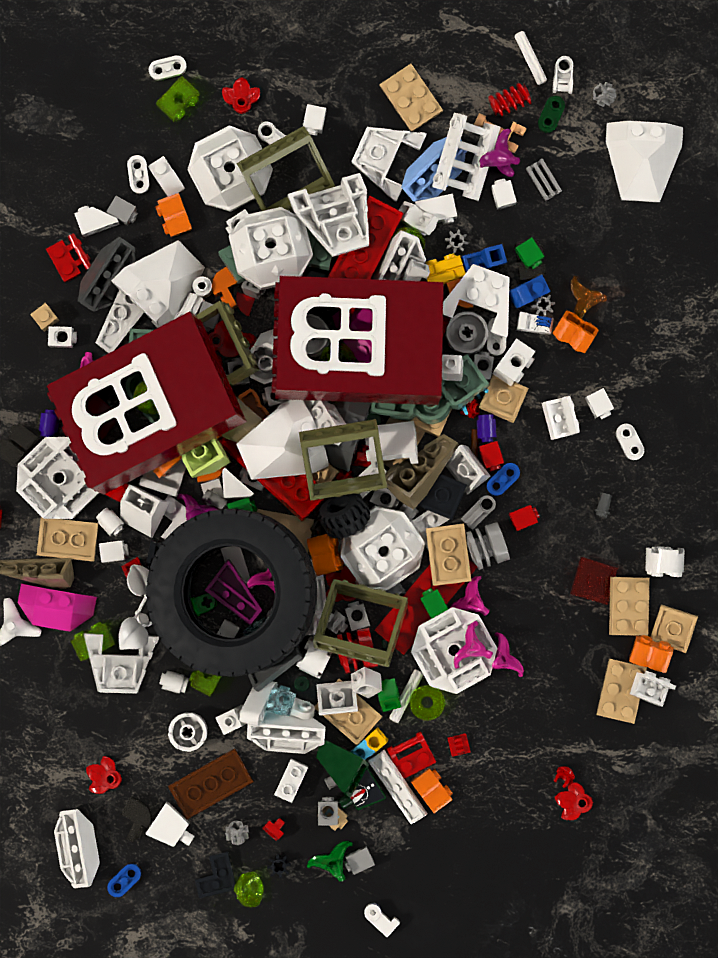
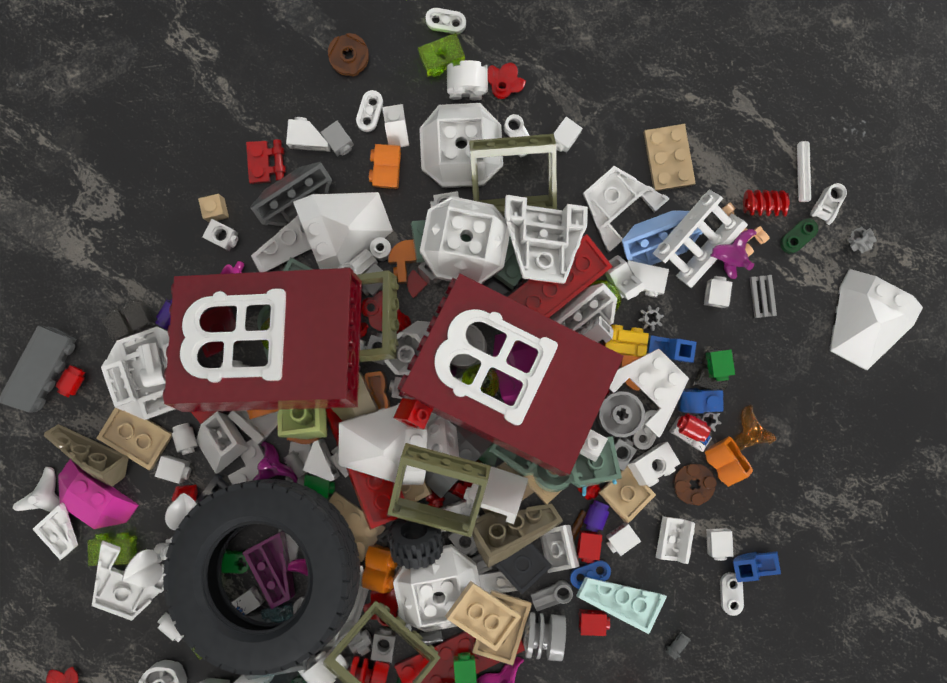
camera: 20 degrees right, 0 degrees up
(40, 647) = (57, 532): none -> white wing
(60, 472) = (152, 367): none -> white piece
(106, 127) = (353, 65): none -> reddish brown plate
(210, 111) = (467, 80): none -> white brick
(294, 405) = (413, 413): none -> red brick
(427, 548) = (483, 616): none -> tan plate
(516, 437) = (622, 539): none -> white brick
(531, 316) = (693, 428): none -> red brick
(543, 489) = (624, 602): none -> light aqua wing
(566, 359) = (697, 495): none -> reddish brown plate
(637, 408) = (752, 565): none -> blue brick

